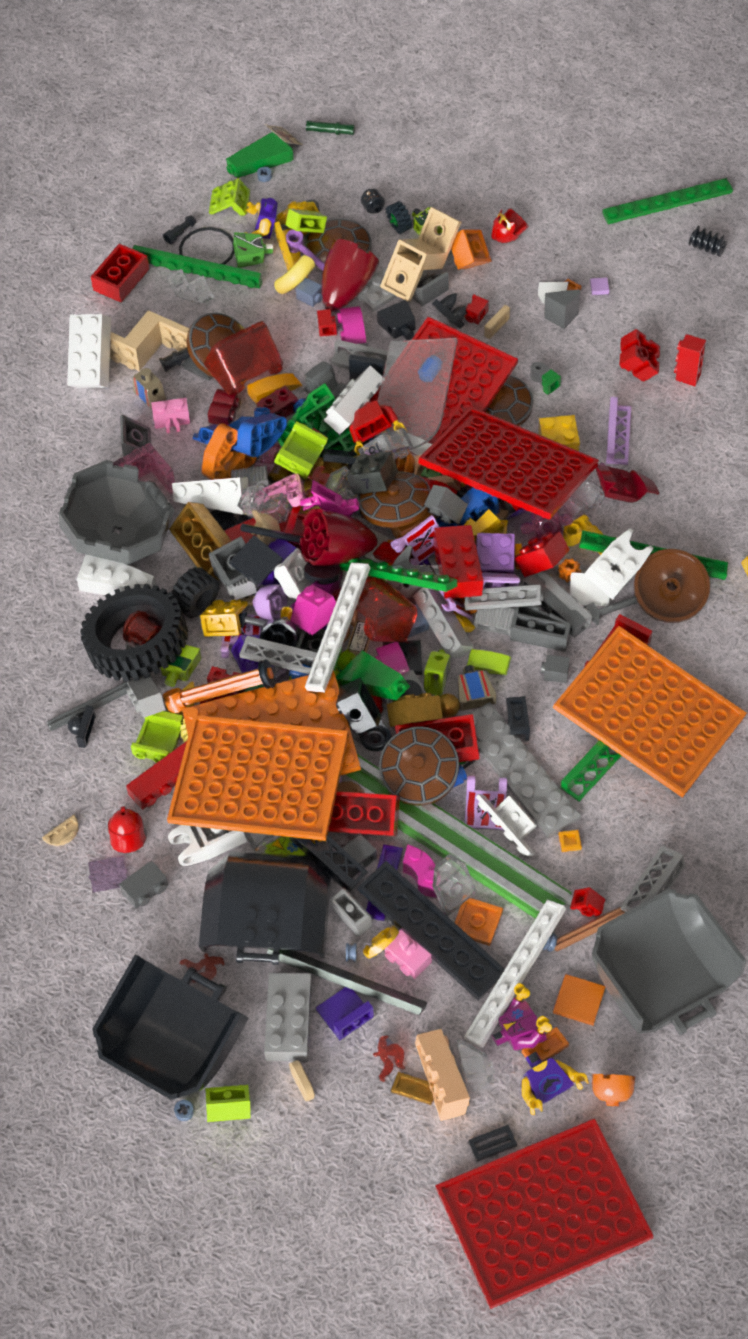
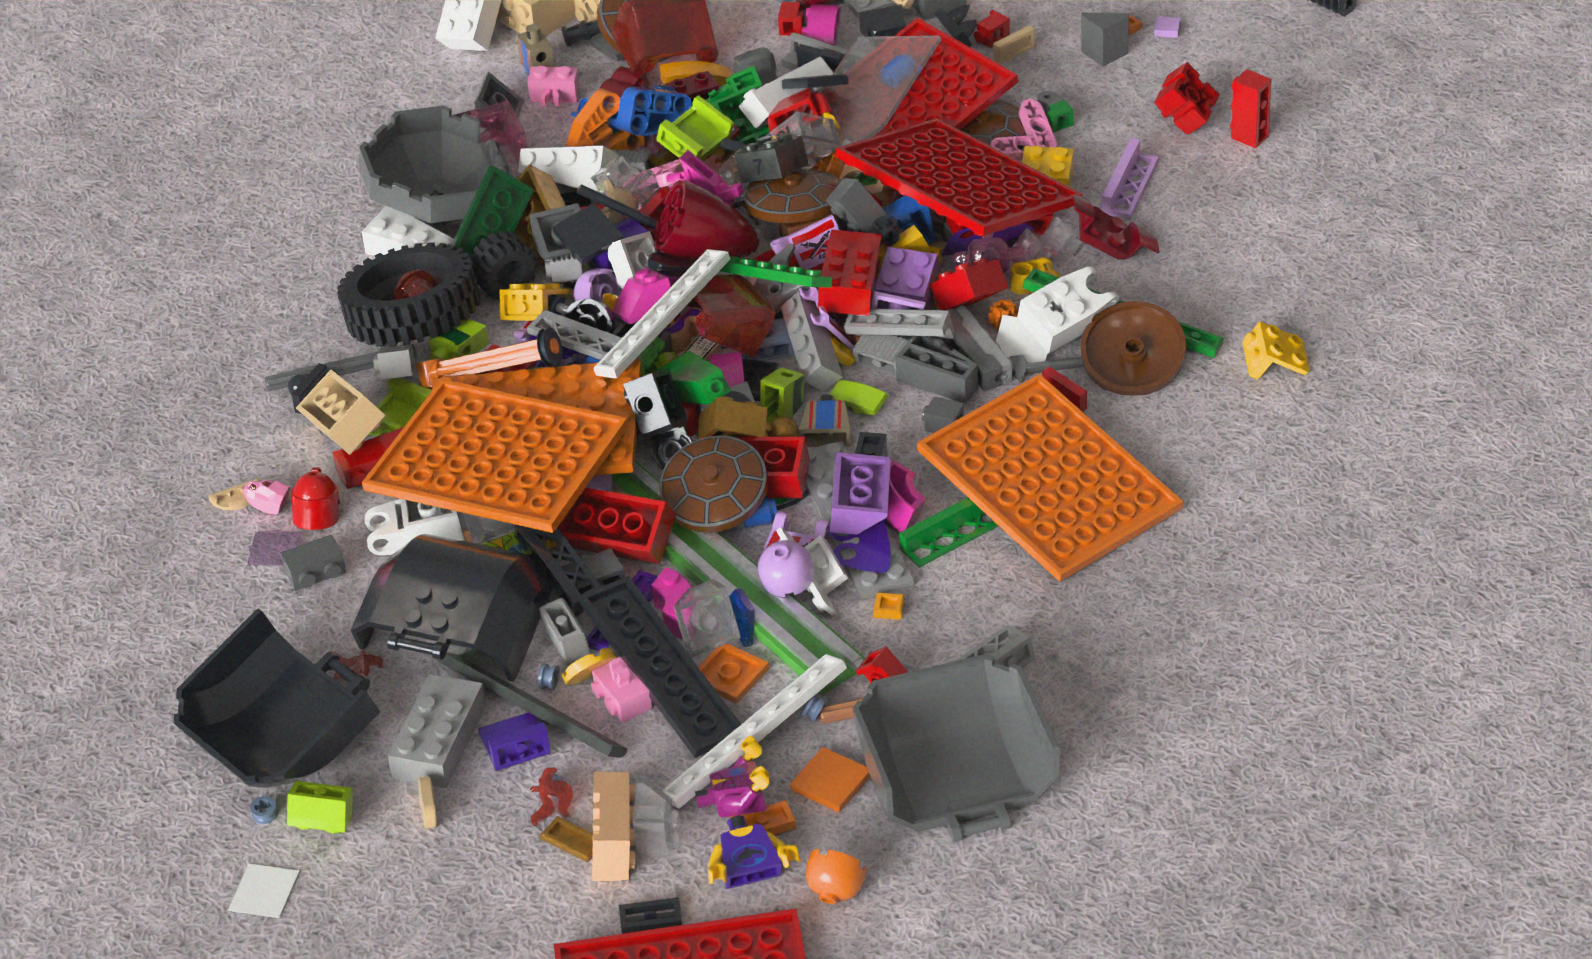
camera: 15 degrees right, 15 degrees down
(87, 830) = (267, 495): none -> bright pink rock
(123, 752) = (341, 412): none -> tan brick
(174, 552) = (493, 209): none -> dark green plate
(207, 1179) = (263, 890): none -> white sticker
(377, 392) = (814, 81): none -> black tile
(471, 518) = (888, 228): none -> black gear
(476, 873) = (744, 616): none -> clear blue tile
(495, 831) = (785, 568): none -> lavender cylinder
(525, 754) = (859, 492): none -> medium lavender slope
(539, 405) = (1034, 138): none -> bright pink beam
(545, 795) = (871, 552): none -> dark purple piece
(549, 747) = (903, 498): none -> dark pink brick

